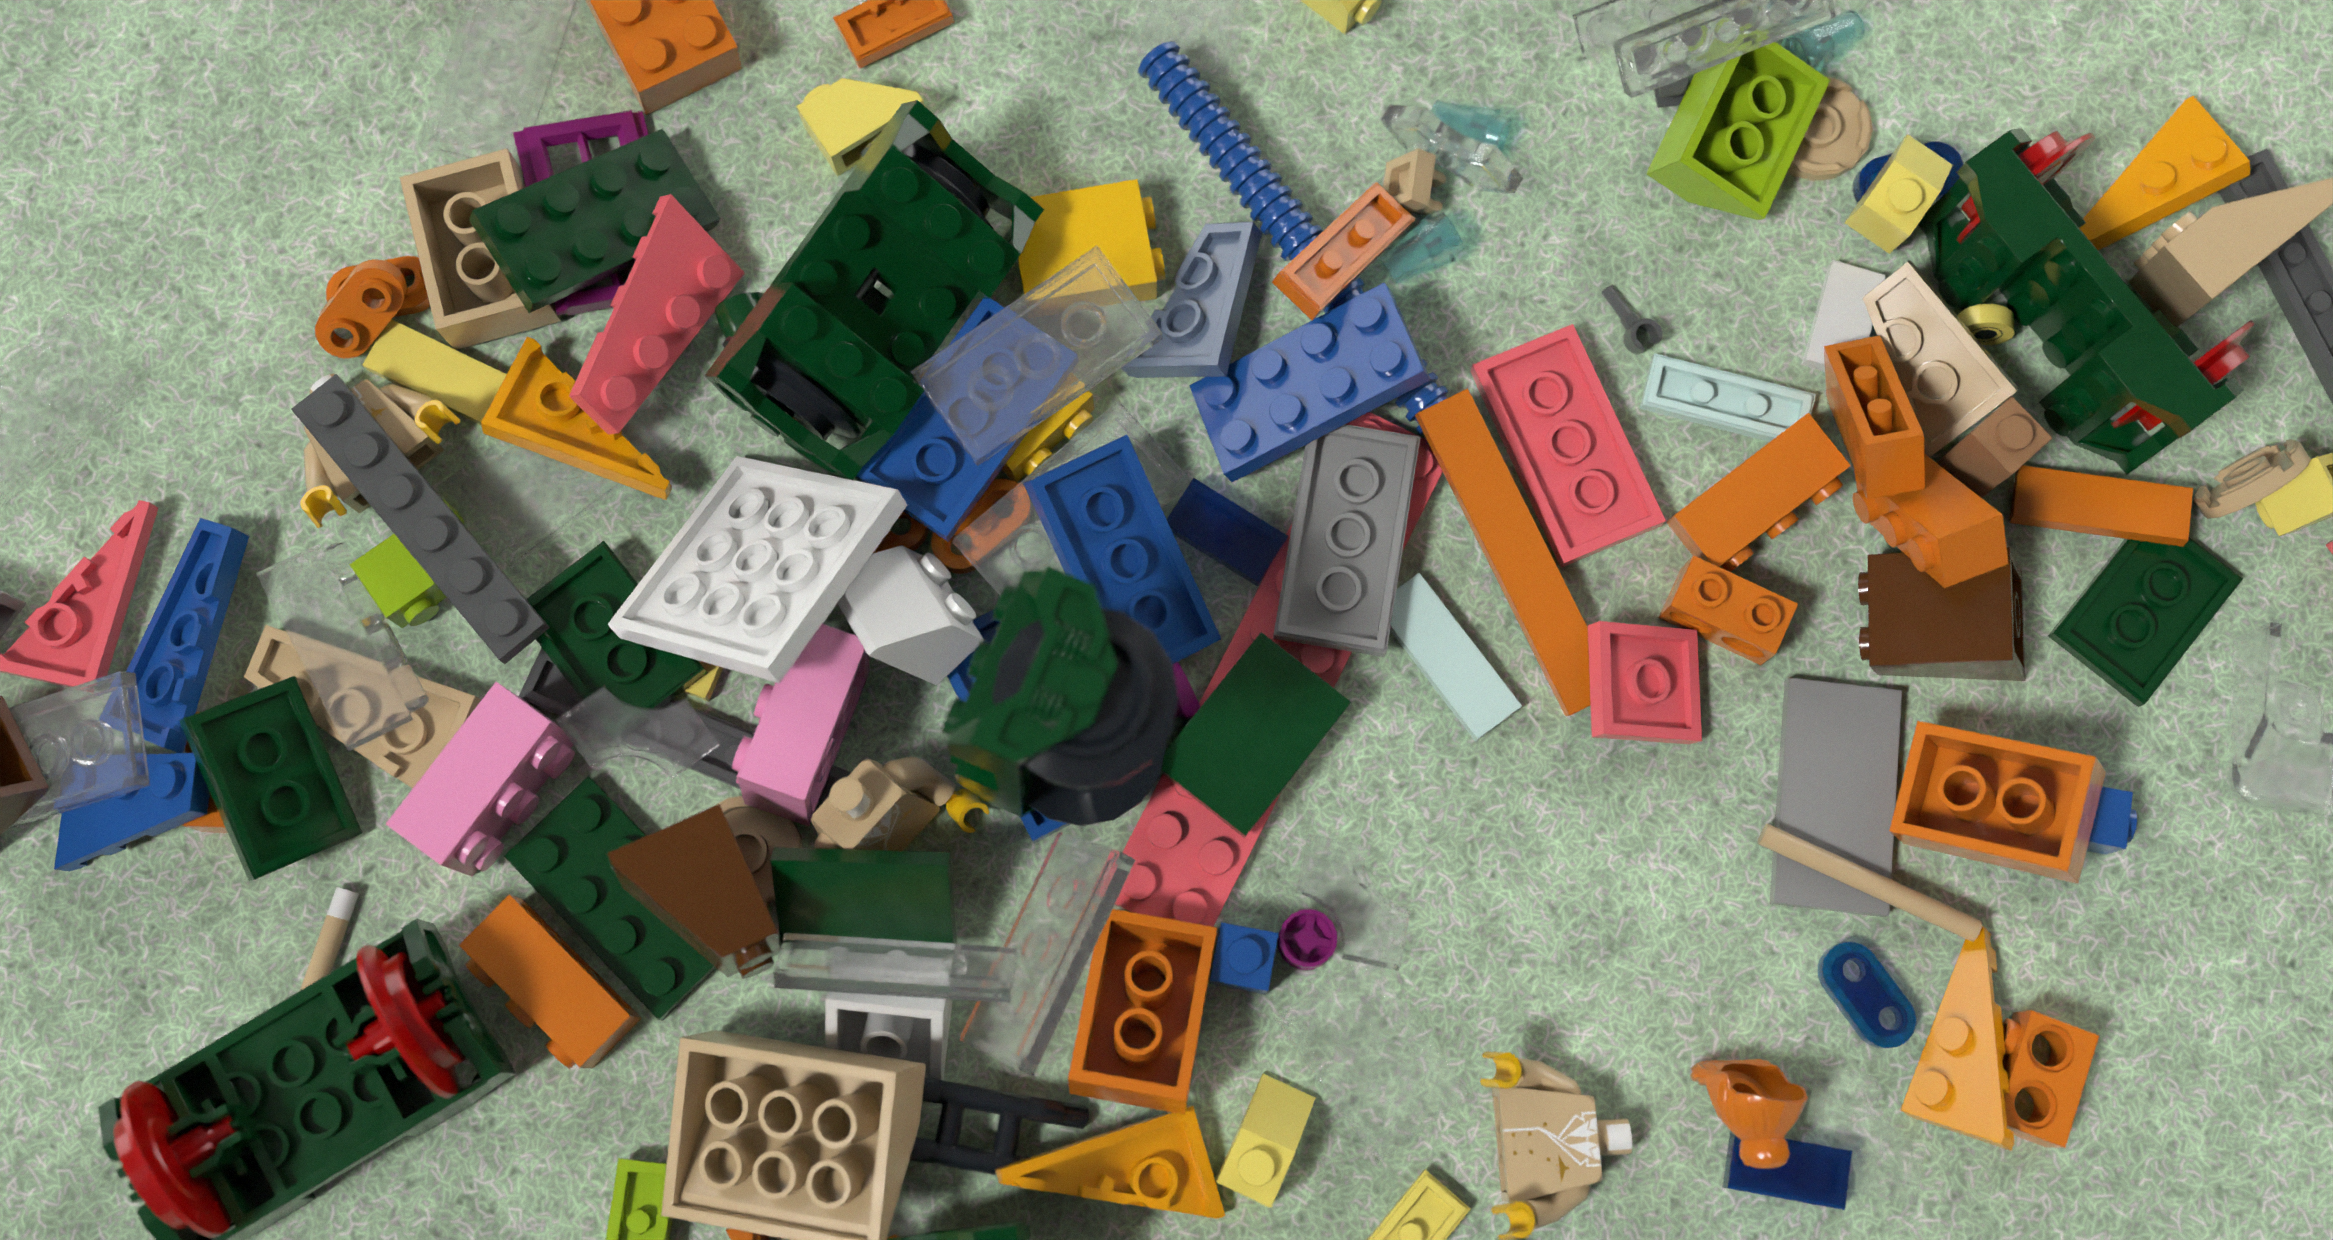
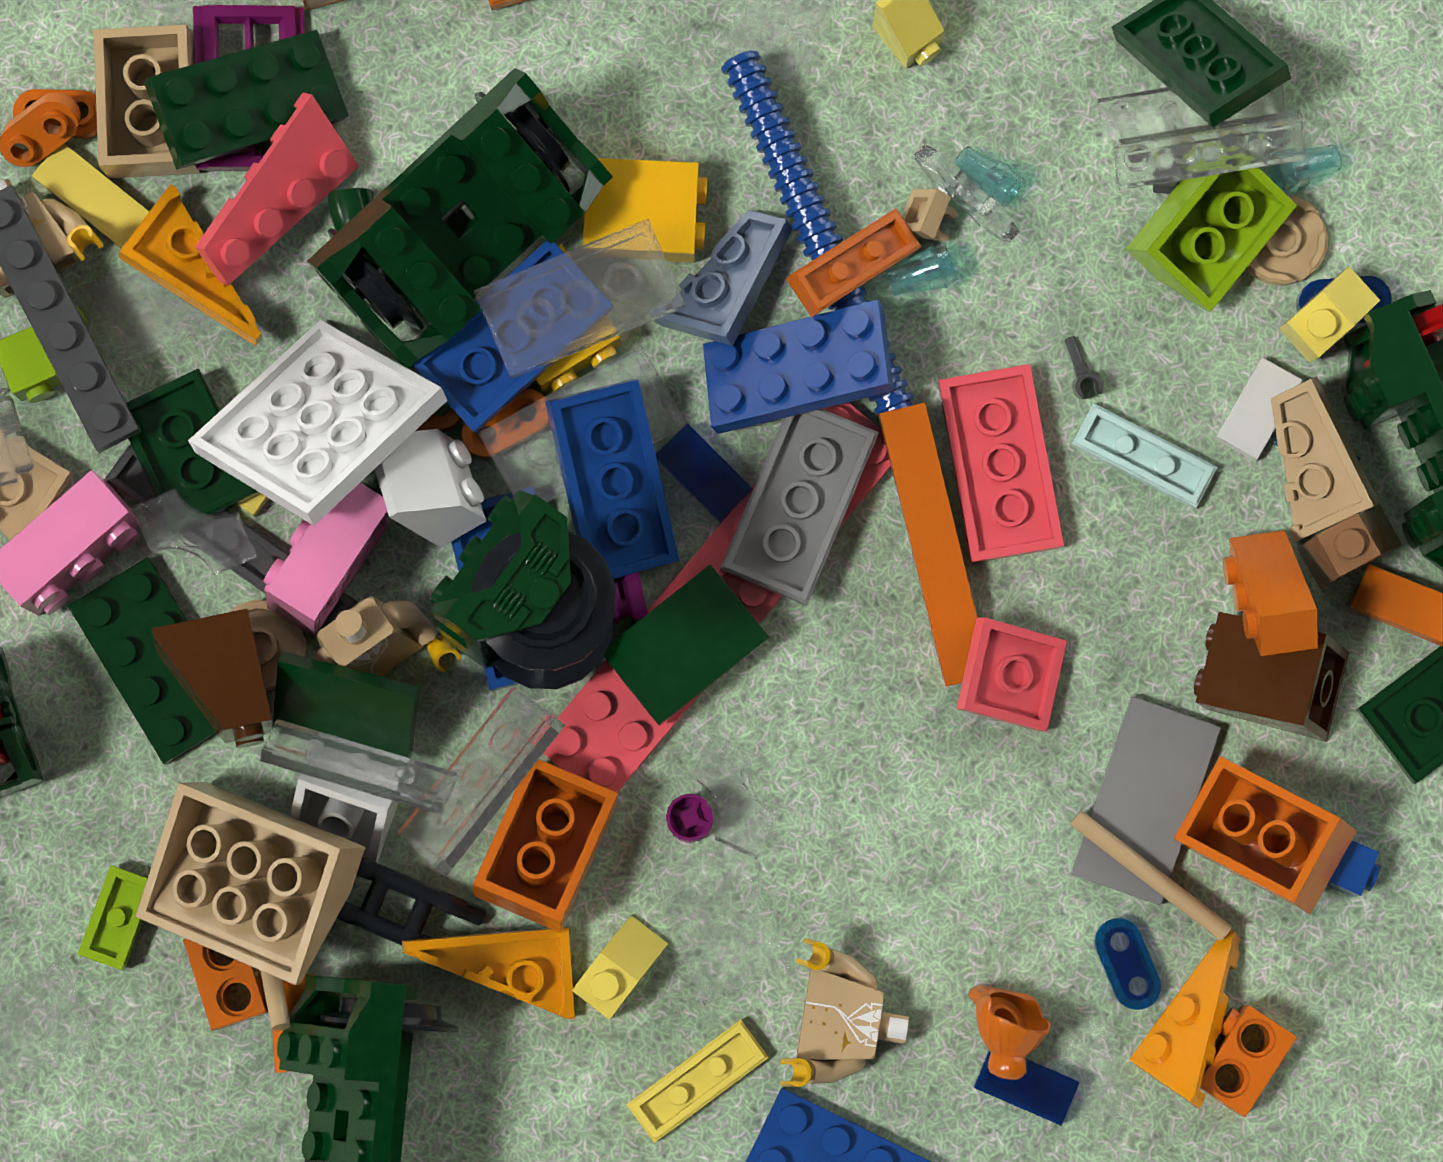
camera: 15 degrees right, 5 degrees up
(548, 984) = (82, 716): orange brick -> none
(849, 117) = (479, 56): light yellow slope -> none
(1243, 958) = (635, 821): blue brick -> none
(1450, 659) = (861, 617): light aqua tile -> none
(1728, 610) = (1095, 630): orange brick -> none
(1761, 495) = (1145, 543): orange brick -> none
(1874, 417) = (1249, 501): orange brick -> none
(1989, 323) = (1373, 440): light yellow tile -> none

